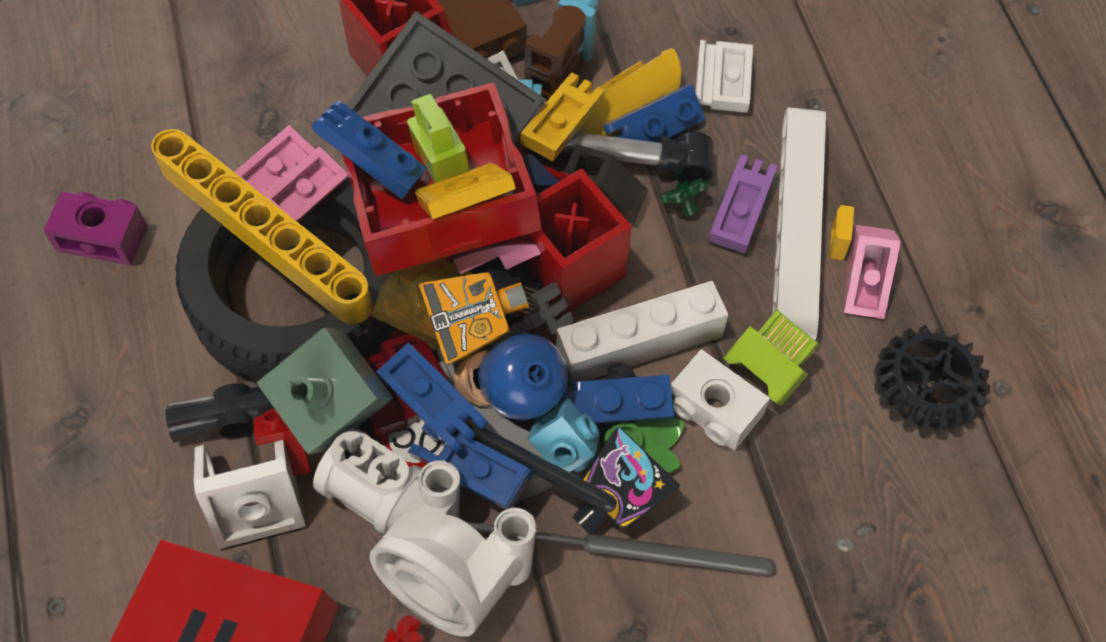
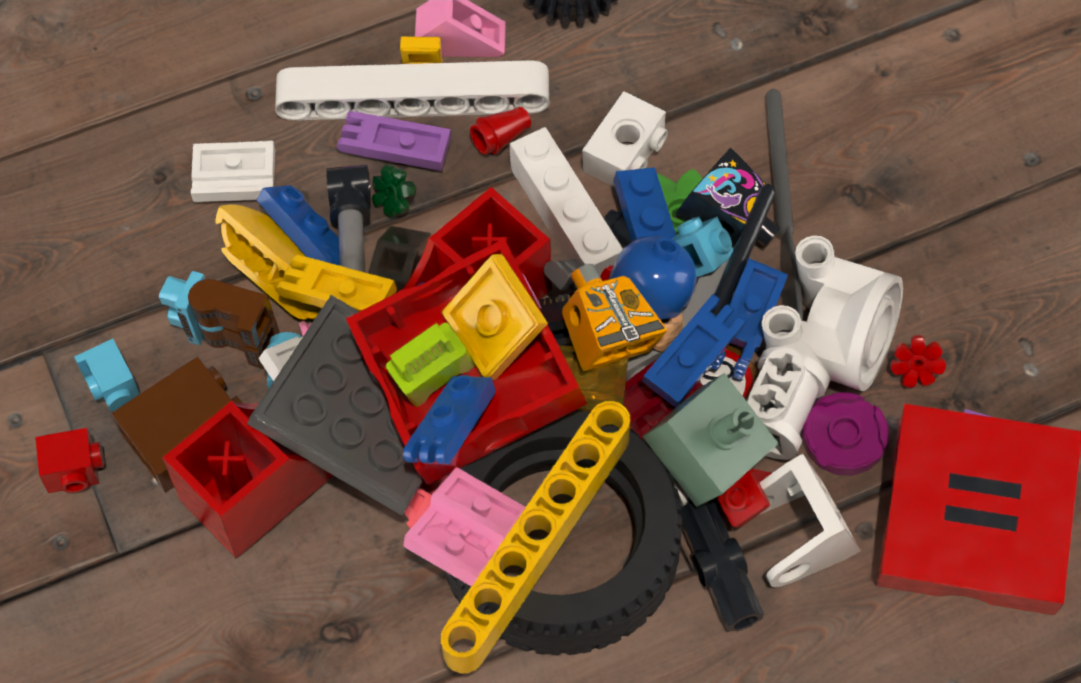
camera: 95 degrees left, 0 degrees up
(339, 558) = (845, 434): none -> magenta tile
(746, 291) = (498, 130): none -> red cone
(775, 355) = (573, 95): lime piece -> none

